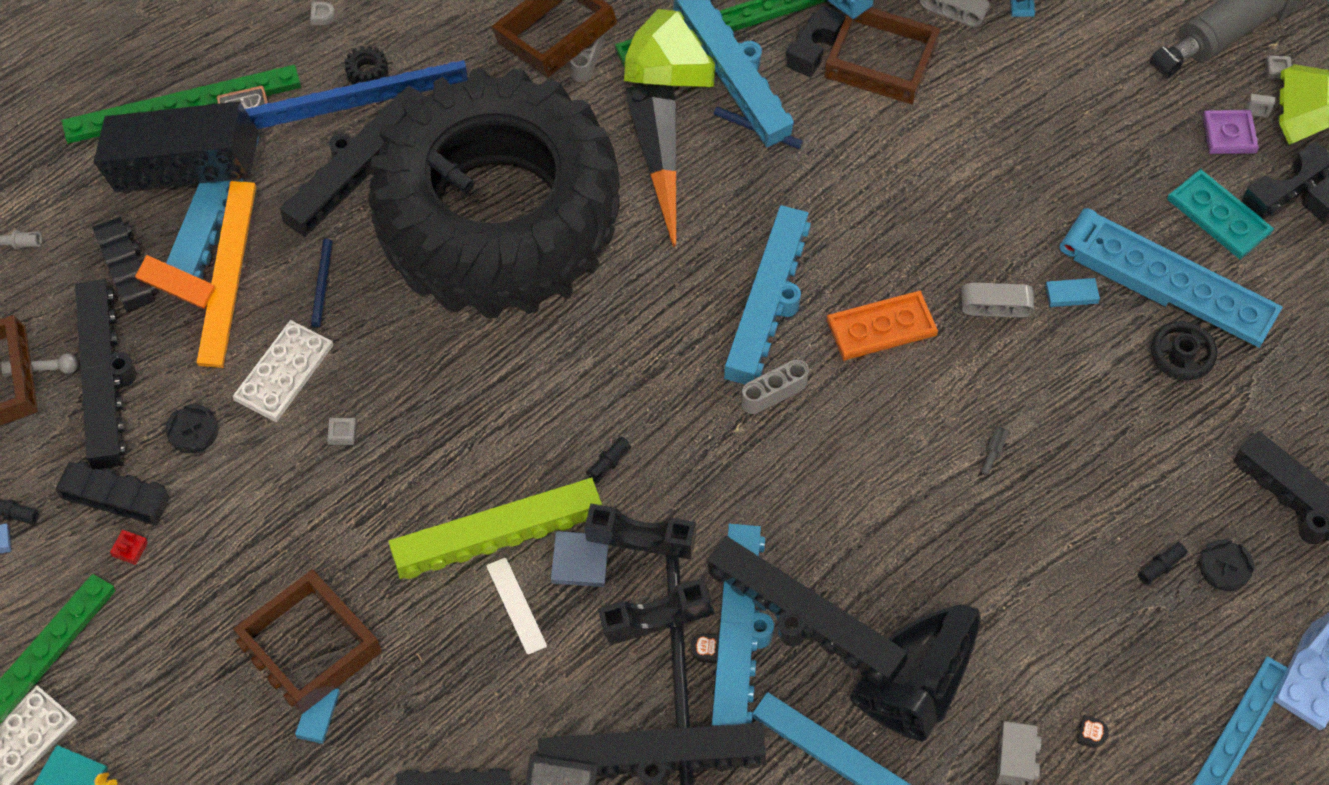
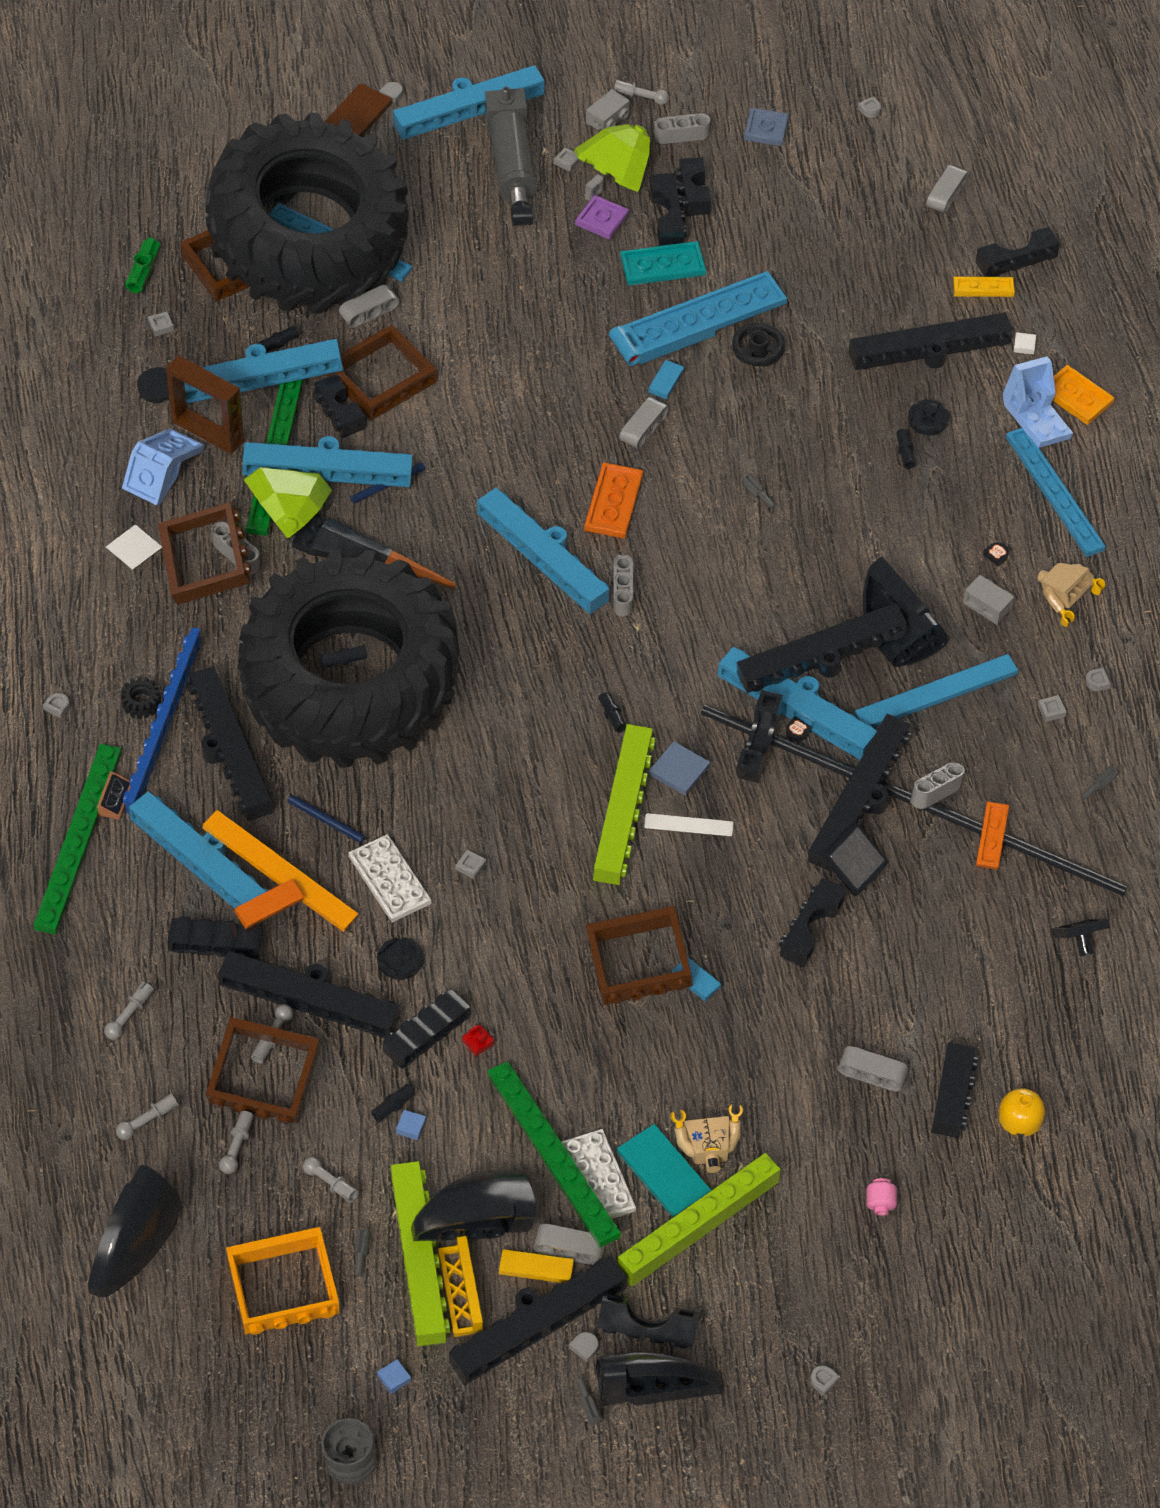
camera: 60 degrees left, 5 degrees down
(176, 146) = (144, 844): black brick -> none
(668, 538) = (677, 730): black arch -> none

